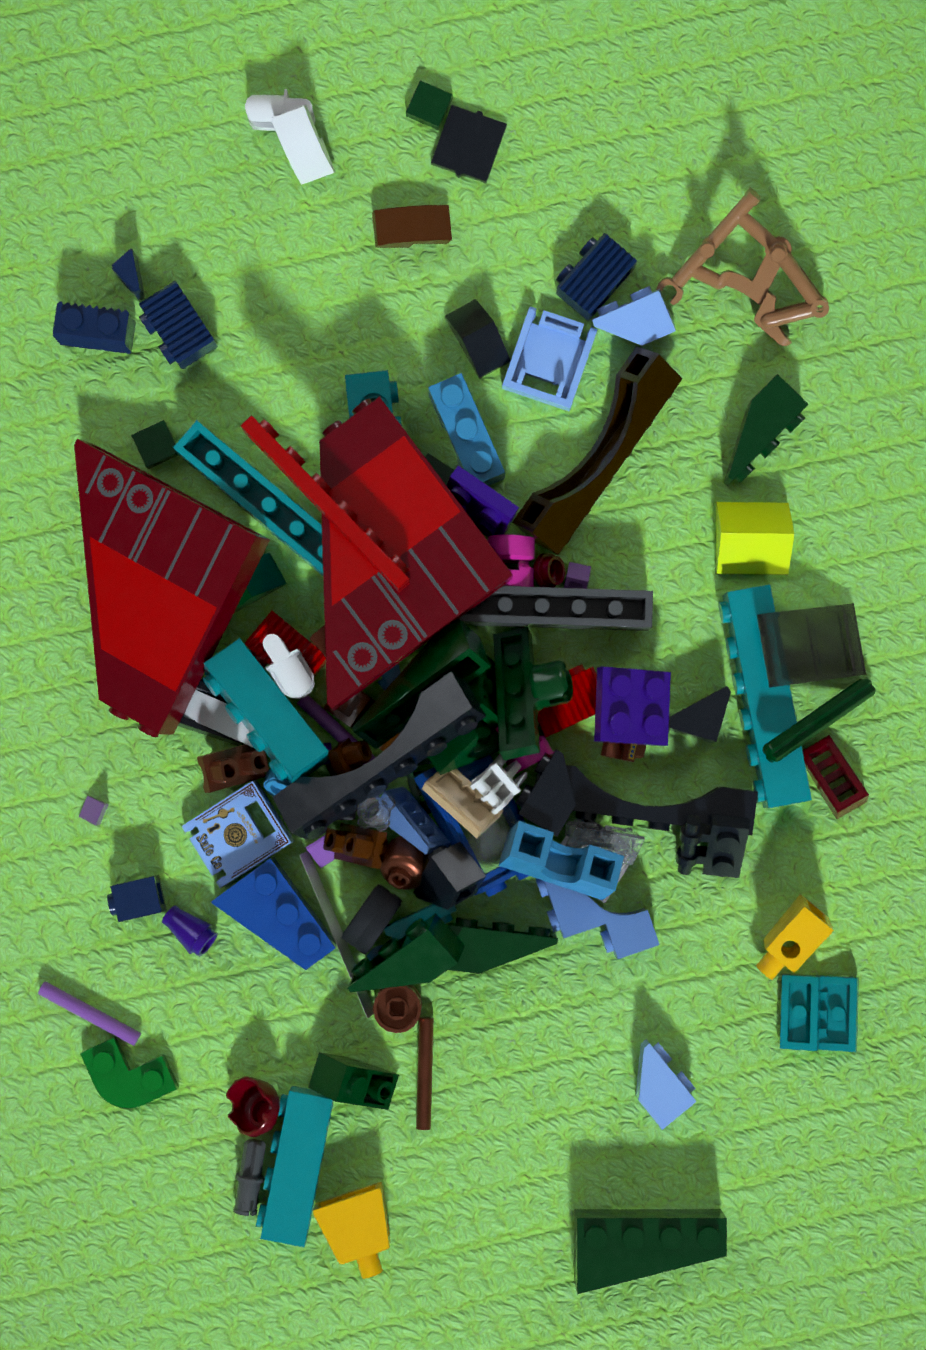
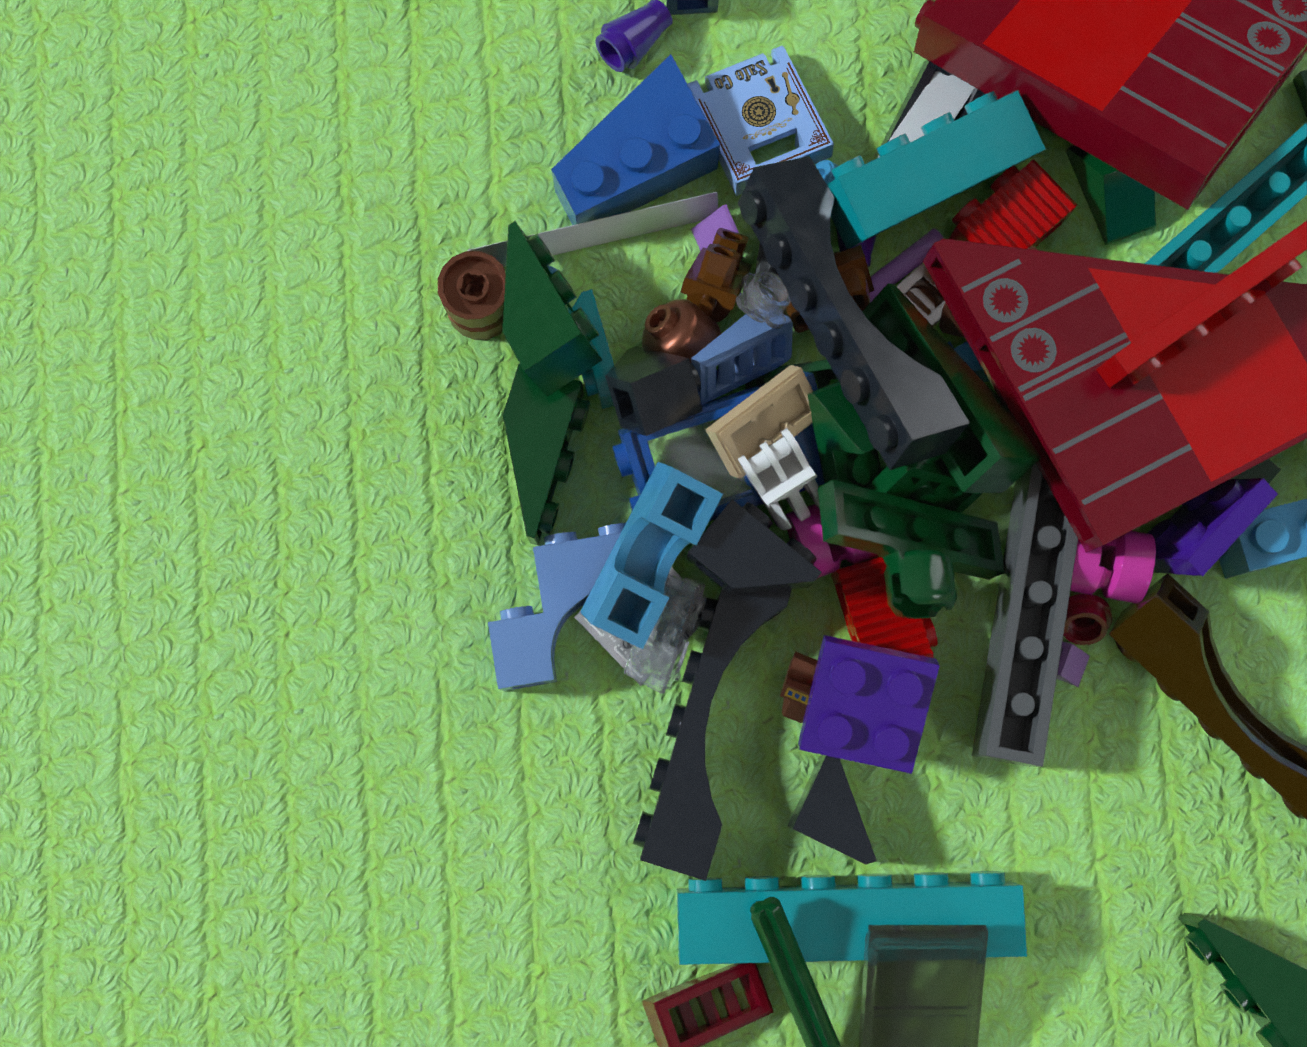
camera: 100 degrees right, 5 degrees down
(232, 767) = (856, 113): copper hips -> none
(250, 1177) = (276, 64): dark grey axle -> none
(253, 1106) = (372, 82): dark red hair -> none
(288, 668) = (996, 205): white arm -> none
(296, 1167) = (279, 126): teal brick -> none
(353, 1081) = (381, 220): dark green slope -> none
(356, 1227) = (177, 194): yellow torso -> none
(371, 919) = (614, 275): black tyre -> none
(424, 1081) = (374, 325): copper bar -> none
(639, 1243) = (66, 594): dark green wedge -> none
(658, 1088) = (285, 657): light blue slope -> none
(724, 849) = (631, 815): black plate -> none
(753, 538) = (1093, 944): neon yellow slope -> none
(800, 924) = (488, 917): yellow torso -> none
(819, 1012) = (353, 921): teal slope -> none

